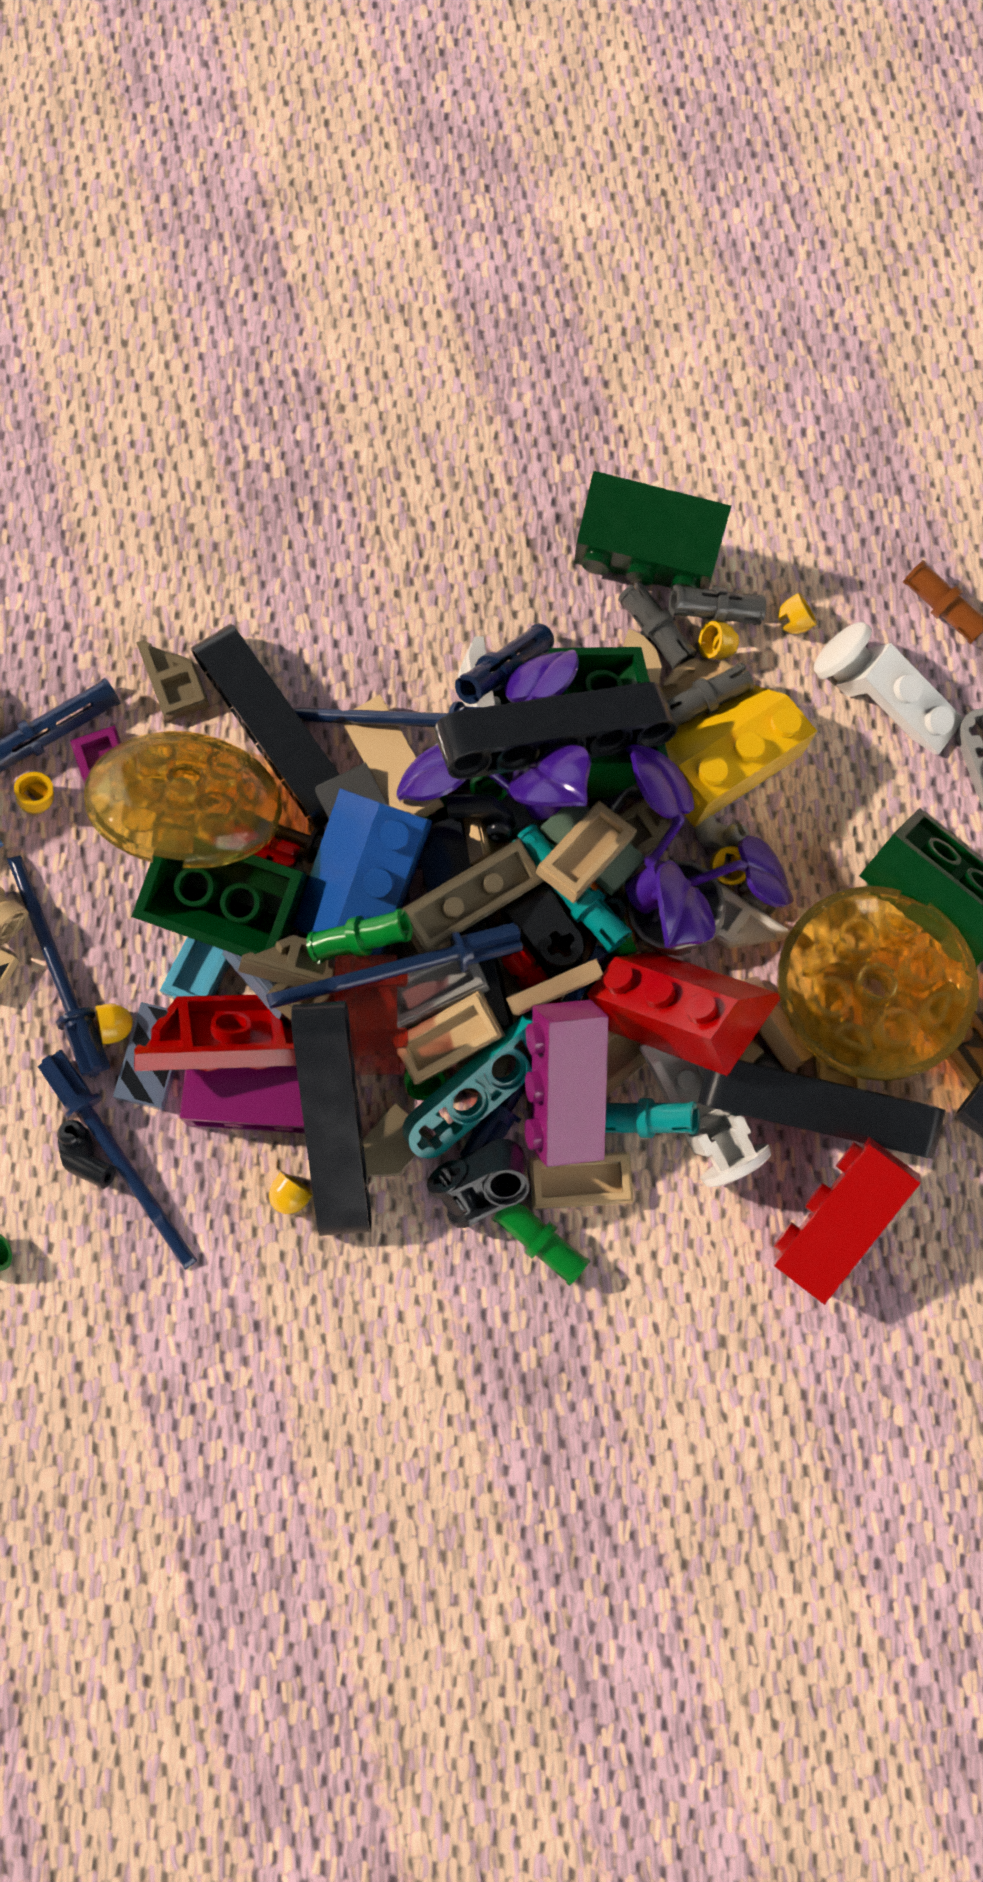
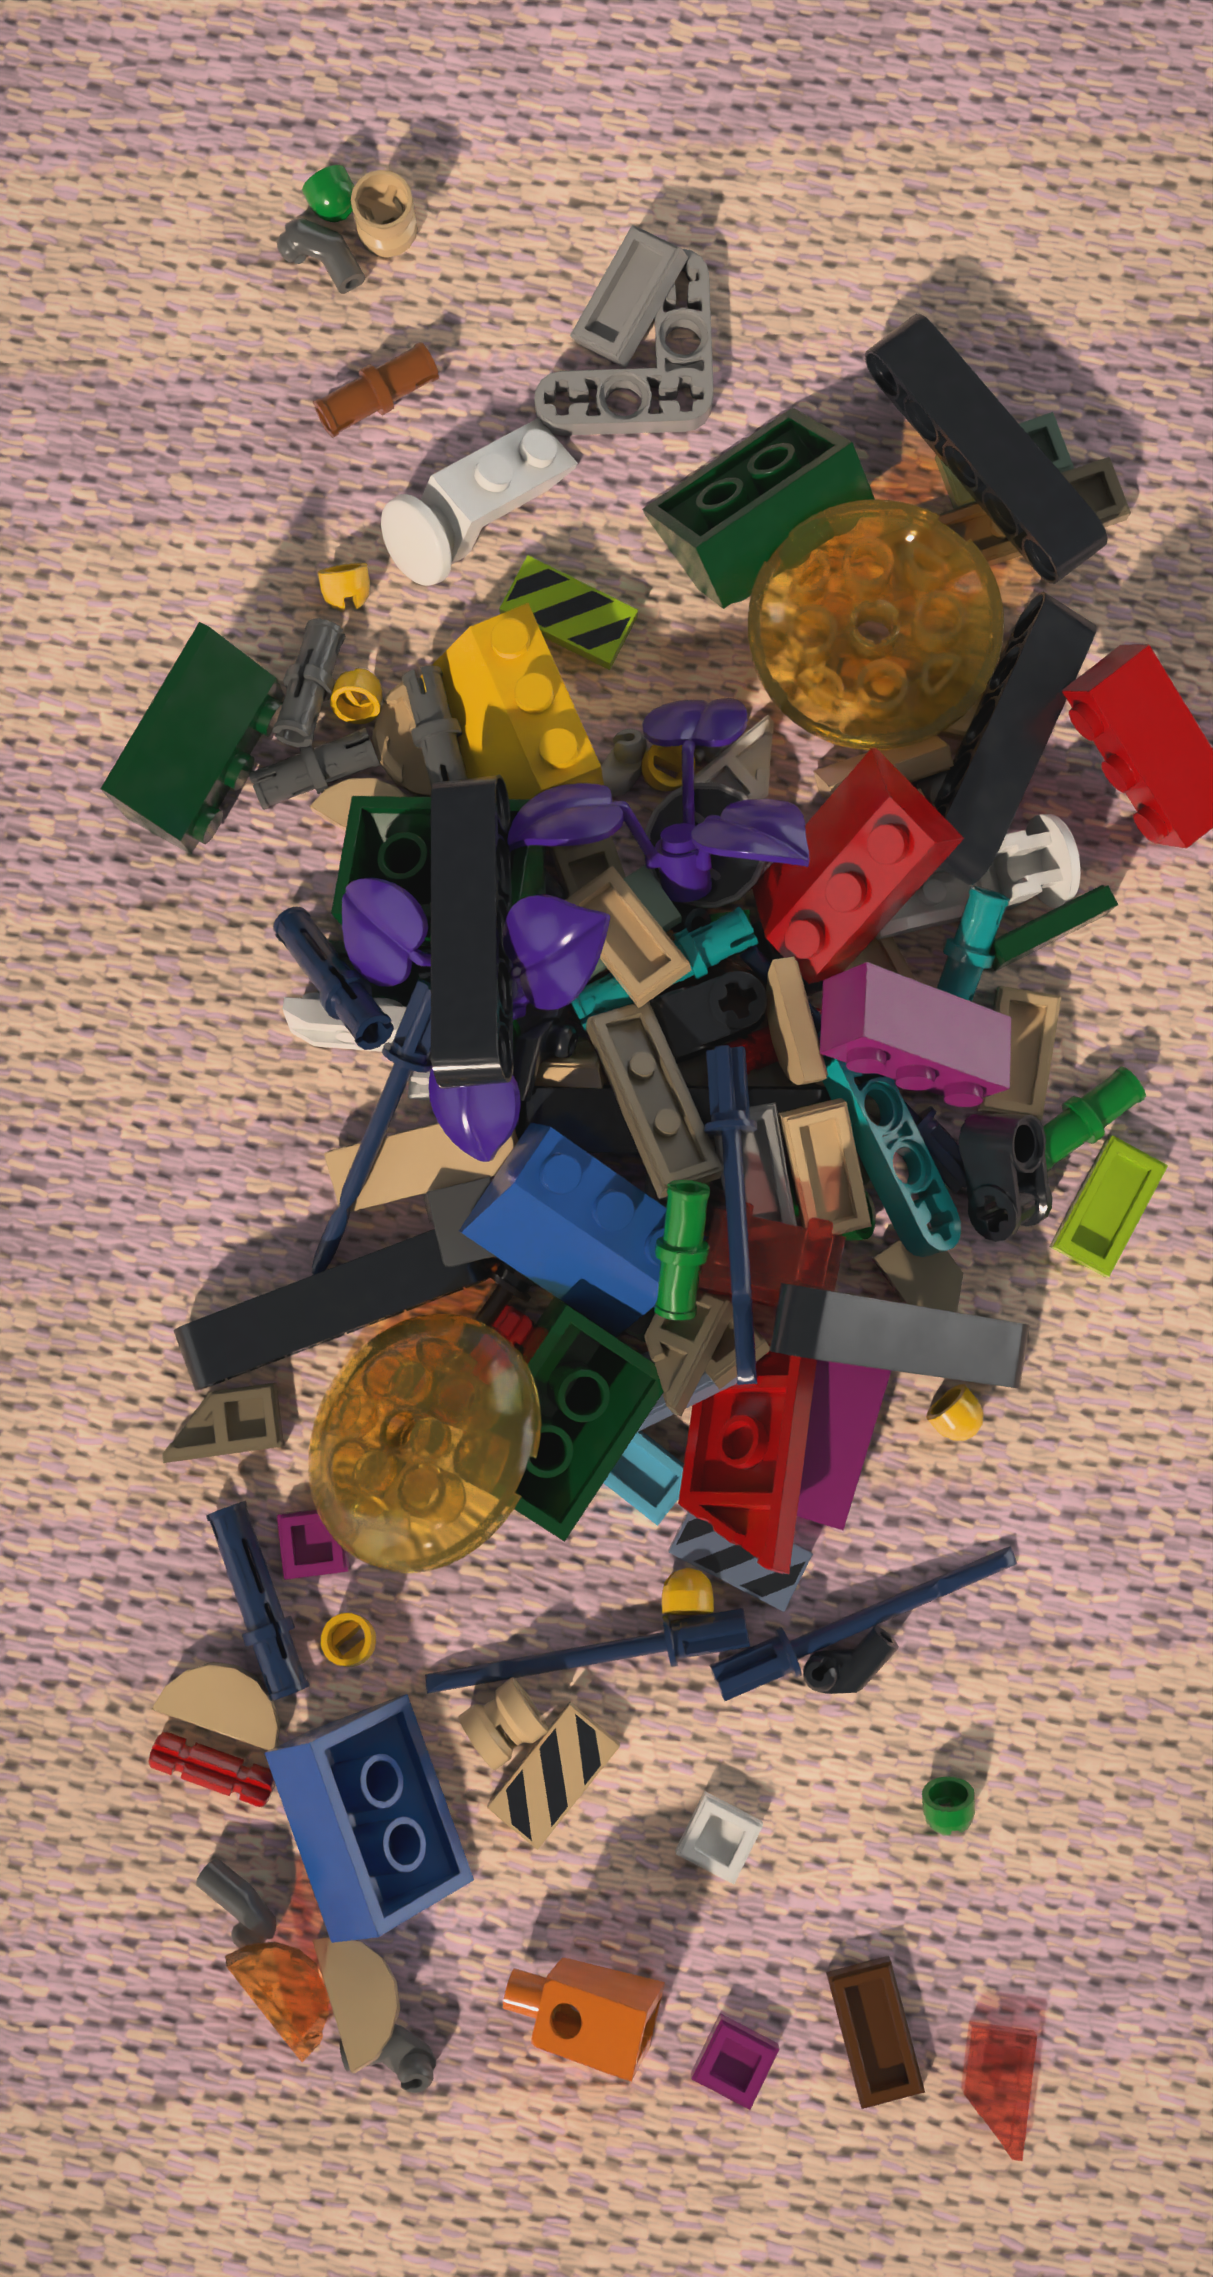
camera: 75 degrees left, 10 degrees up
(478, 1277) = (1108, 1206): none -> lime tile
(684, 1178) = (1052, 926): none -> dark green tile
(825, 774) = (572, 612): none -> lime tile

